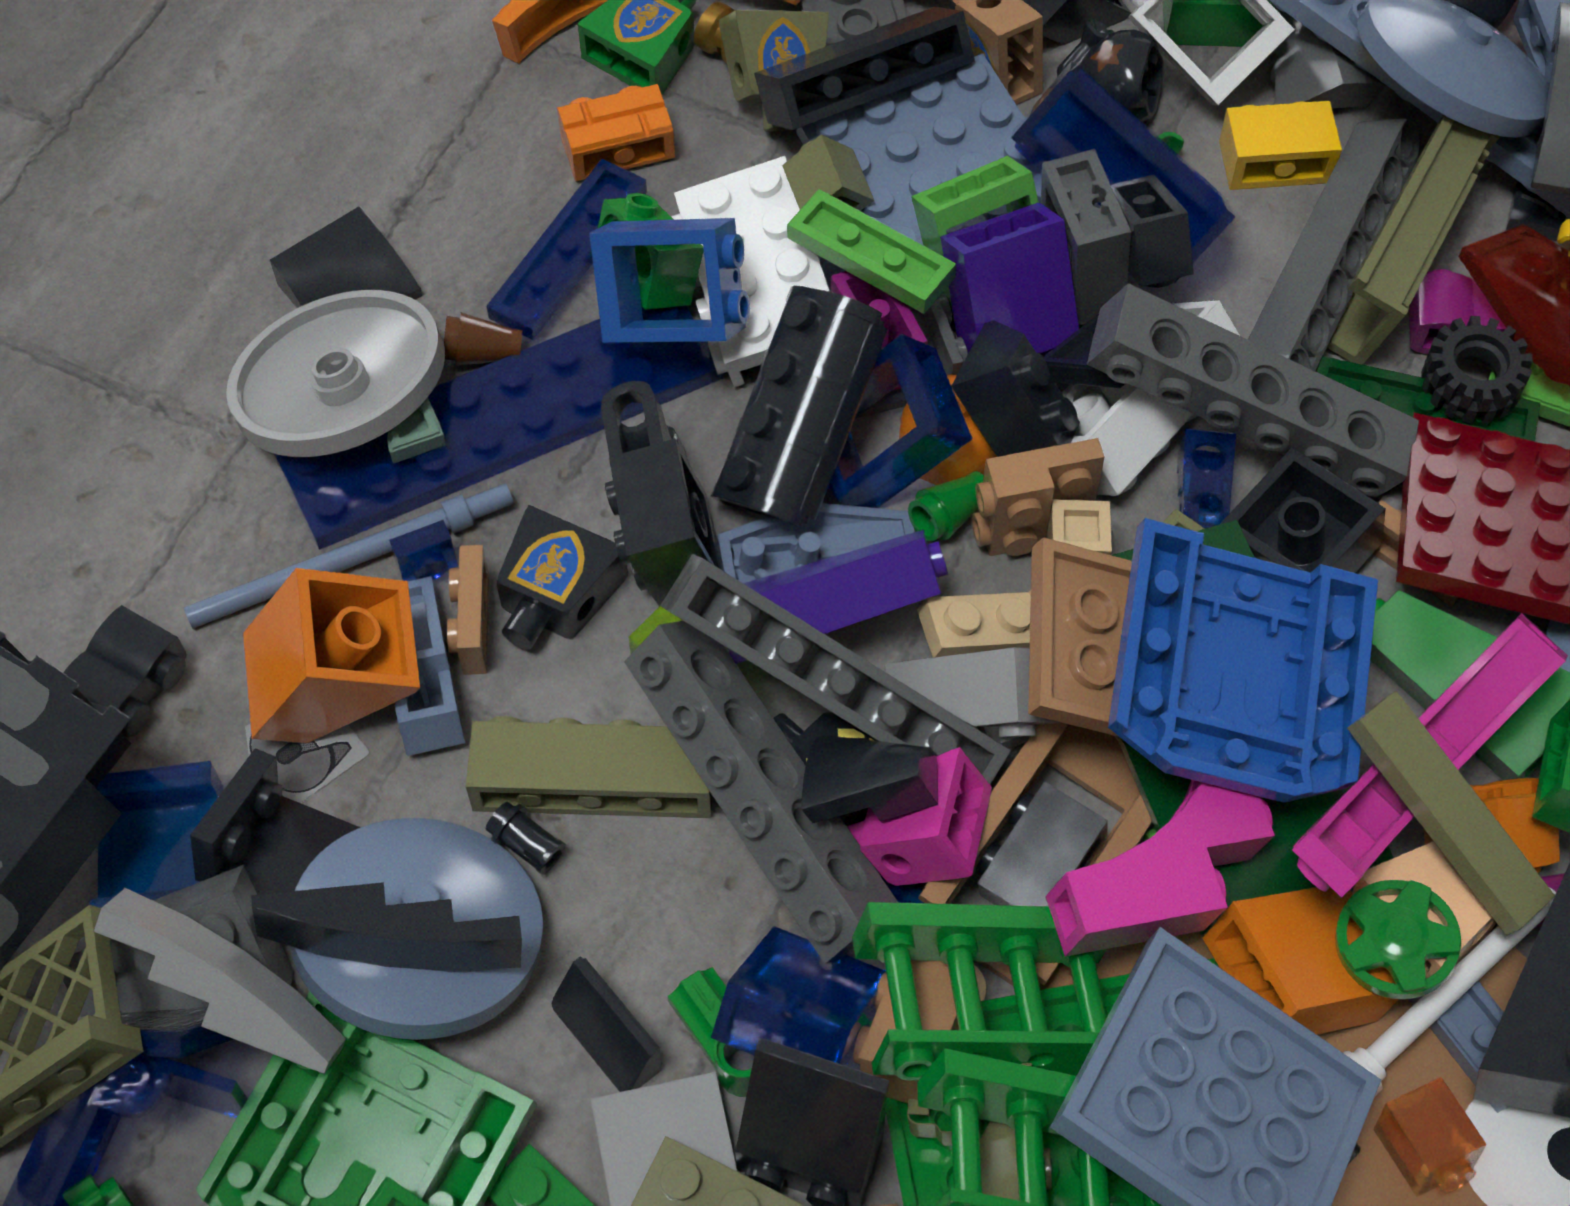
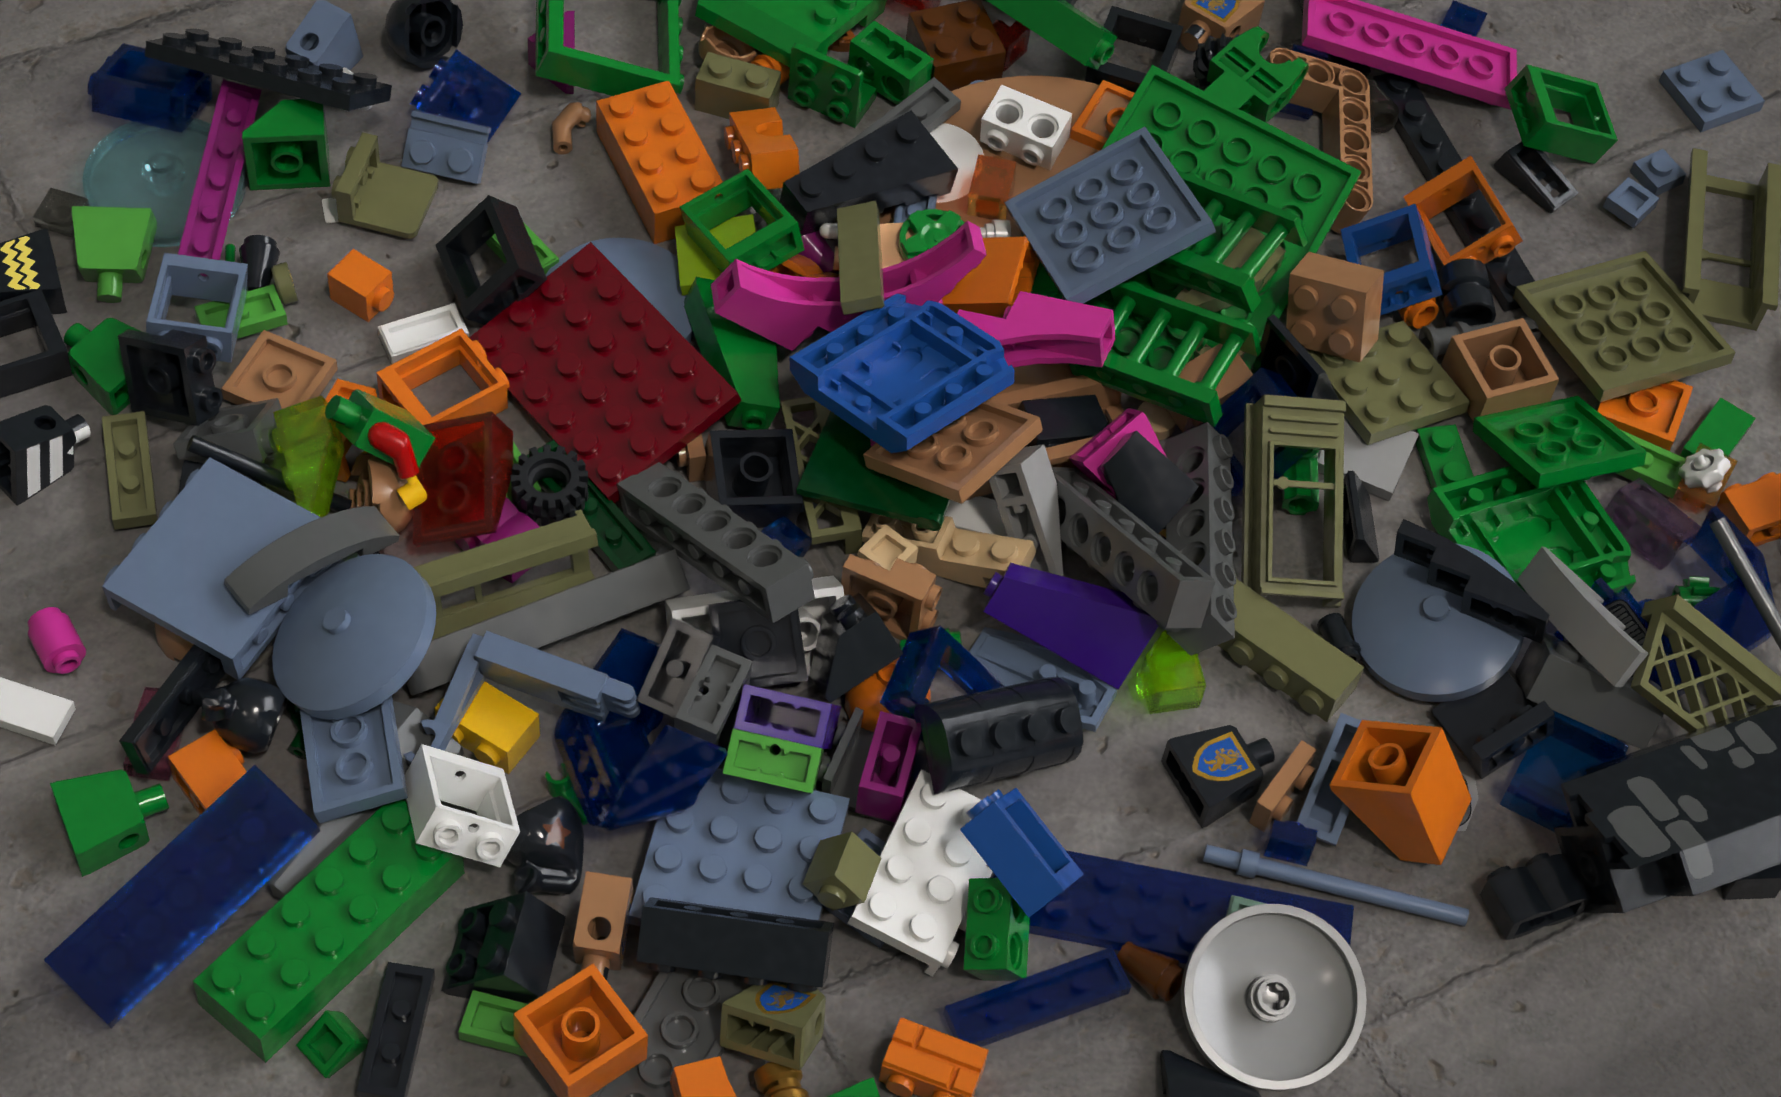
camera: 150 degrees left, 5 degrees down
(653, 493) = (1126, 747): black brick -> none
(721, 982) = (1302, 425): none -> olive piece
(871, 251) = (871, 778): bright green plate -> none
(1267, 151) = (529, 672): none -> sand blue hinge

